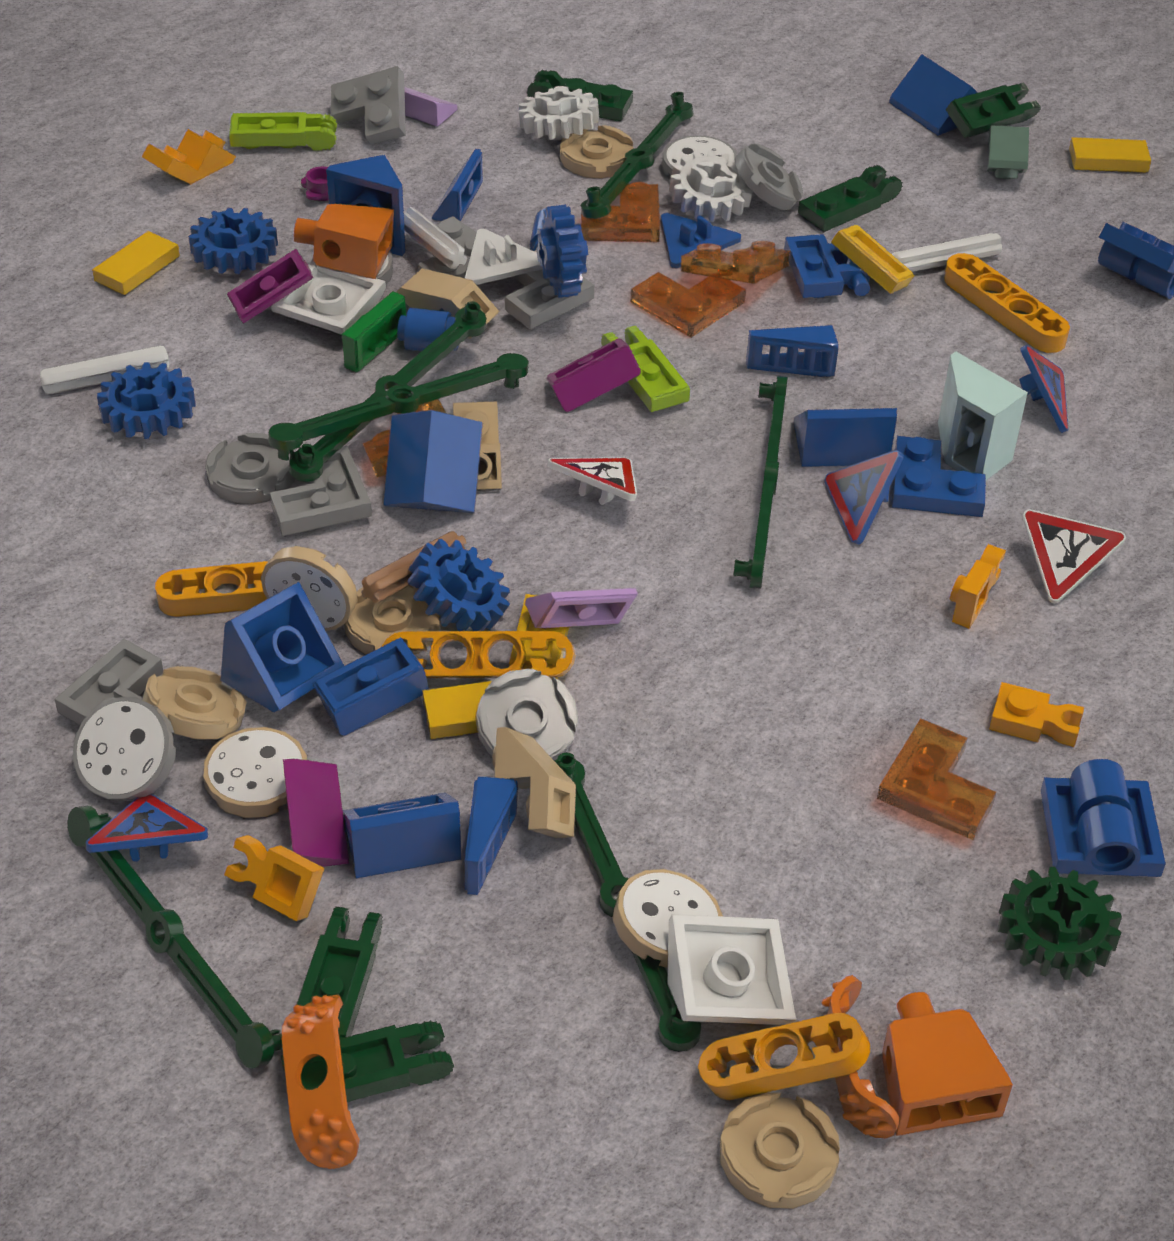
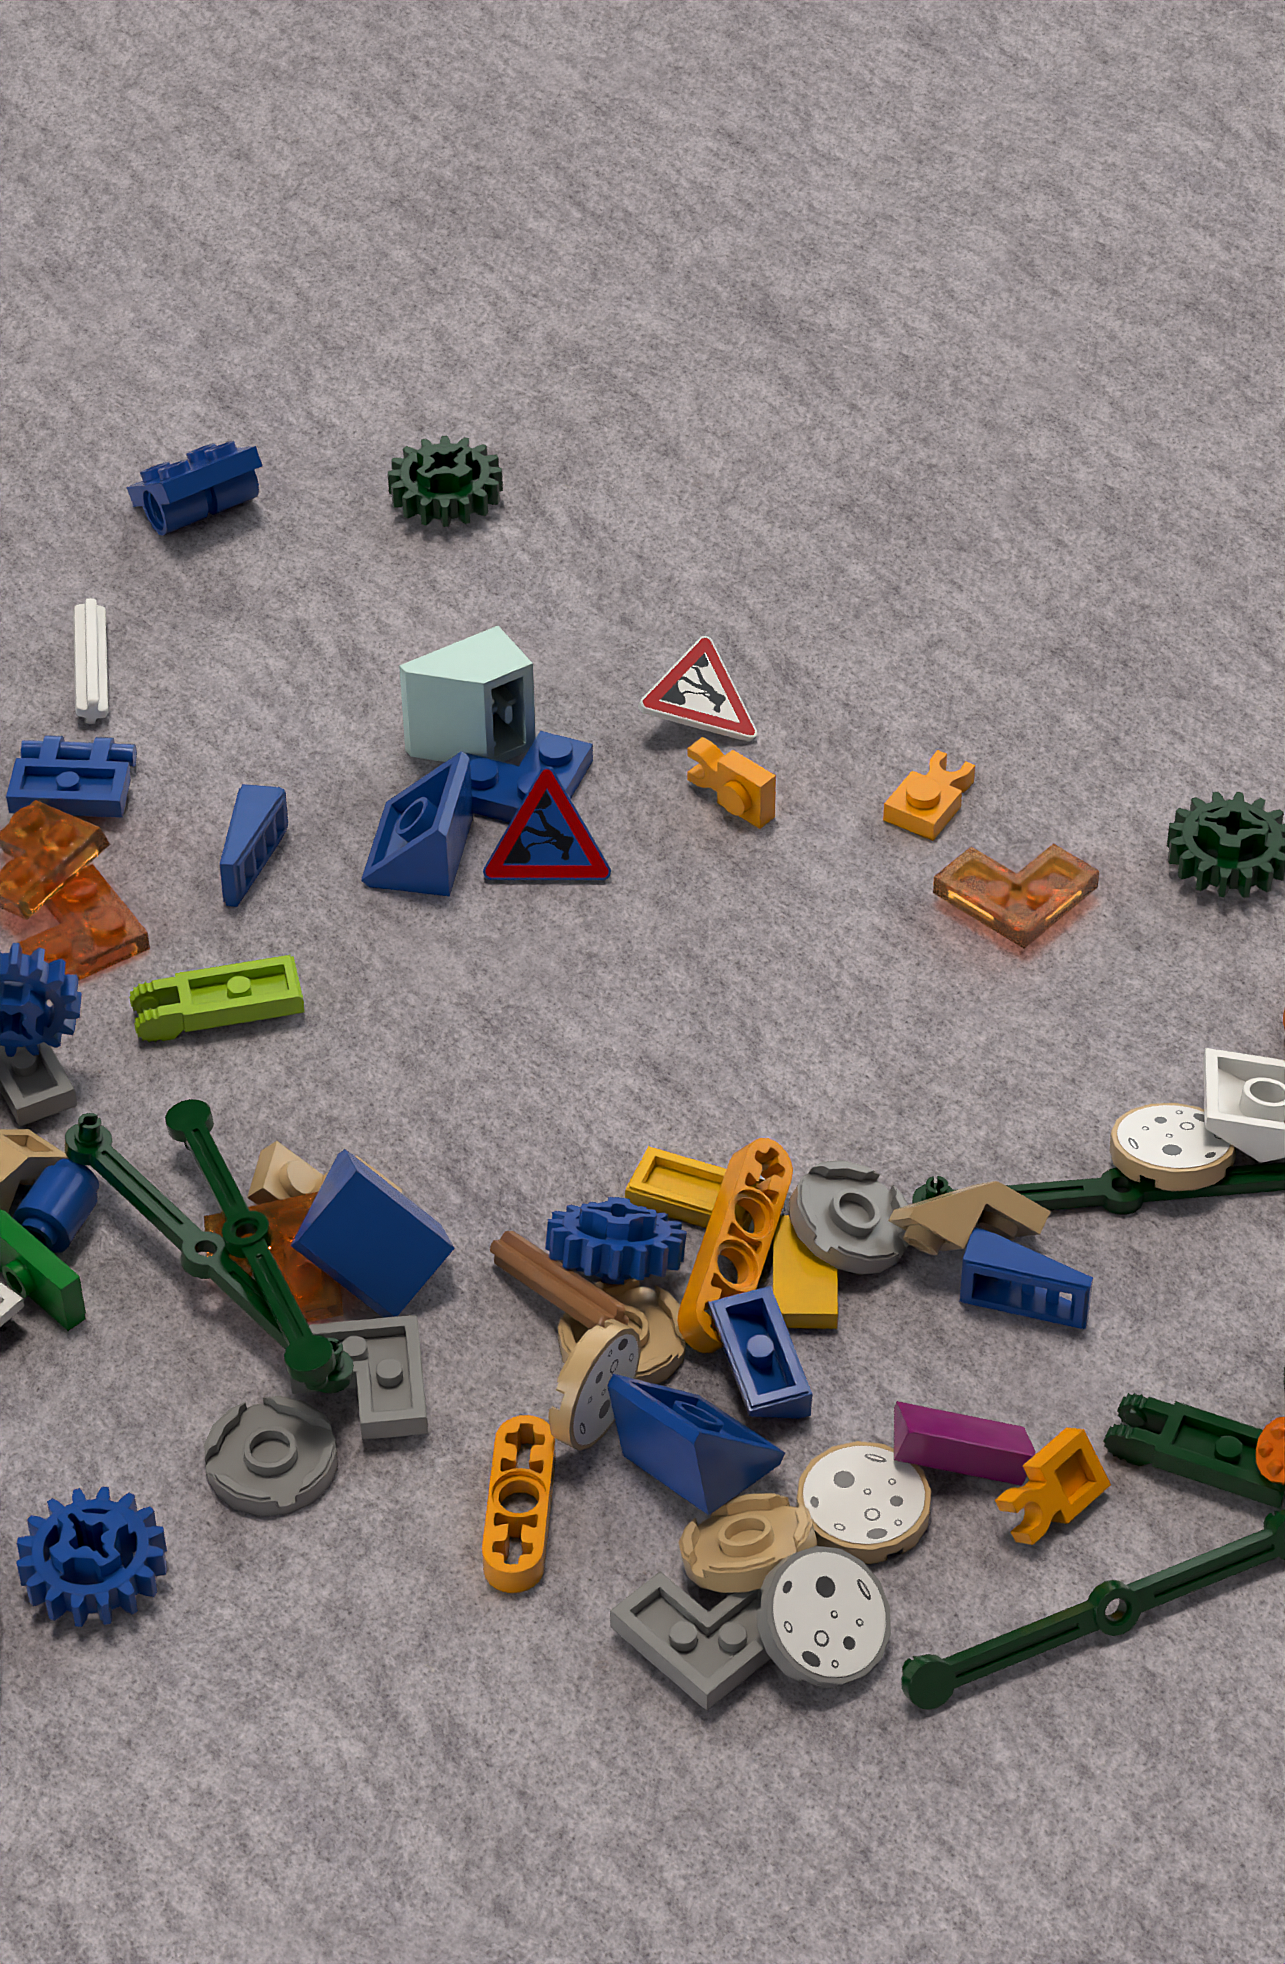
camera: 75 degrees left, 0 degrees up
(144, 824) = (955, 1606): piece -> none
(403, 834) = (995, 1353): blue slope -> none
(580, 607) = (679, 1129): lavender slope -> none
(594, 374) = (220, 1046): magenta slope -> none
(610, 474) = (431, 1072): piece -> none
(754, 567) = (641, 963): dark green piece -> none
(873, 258) = (92, 723): yellow tile -> none
(1039, 327) = (287, 614): light orange beam -> none
(1046, 382) = (400, 635): blue piece -> none
(1102, 822) = (1105, 782): blue plate -> none

